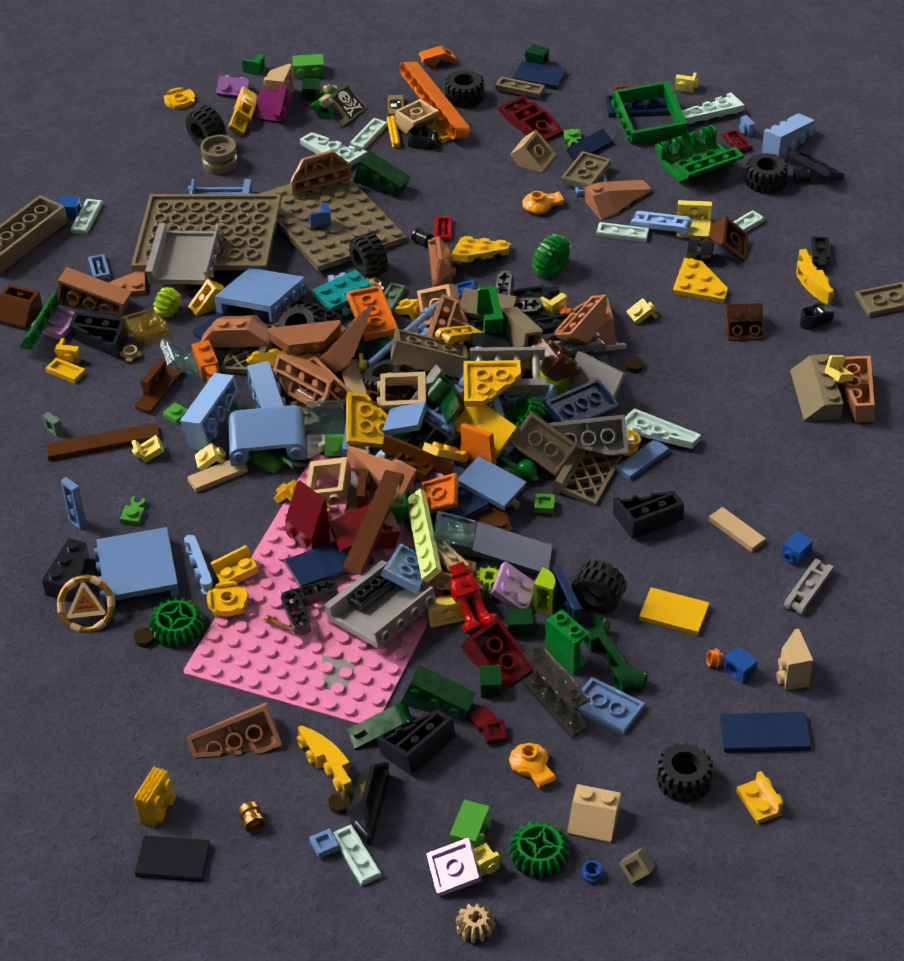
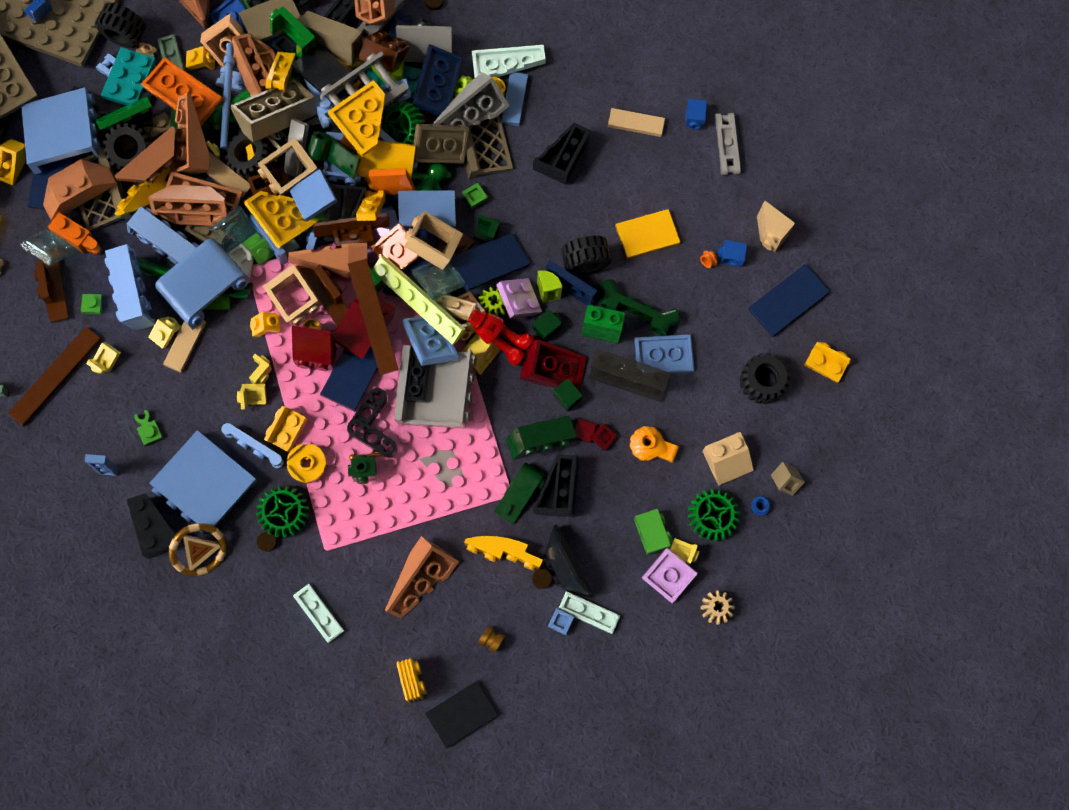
camera: 45 degrees left, 30 degrees up
(133, 711) = (318, 613): none -> light aqua tile
(231, 532) = (252, 394): none -> light yellow bracket
(254, 522) = (260, 375): none -> light yellow bracket
(266, 626) = (368, 465): none -> dark green brick
(316, 304) = (124, 114): none -> green plate
(471, 515) = (438, 229): none -> tan window
(535, 530) = (486, 229): none -> dark green panel

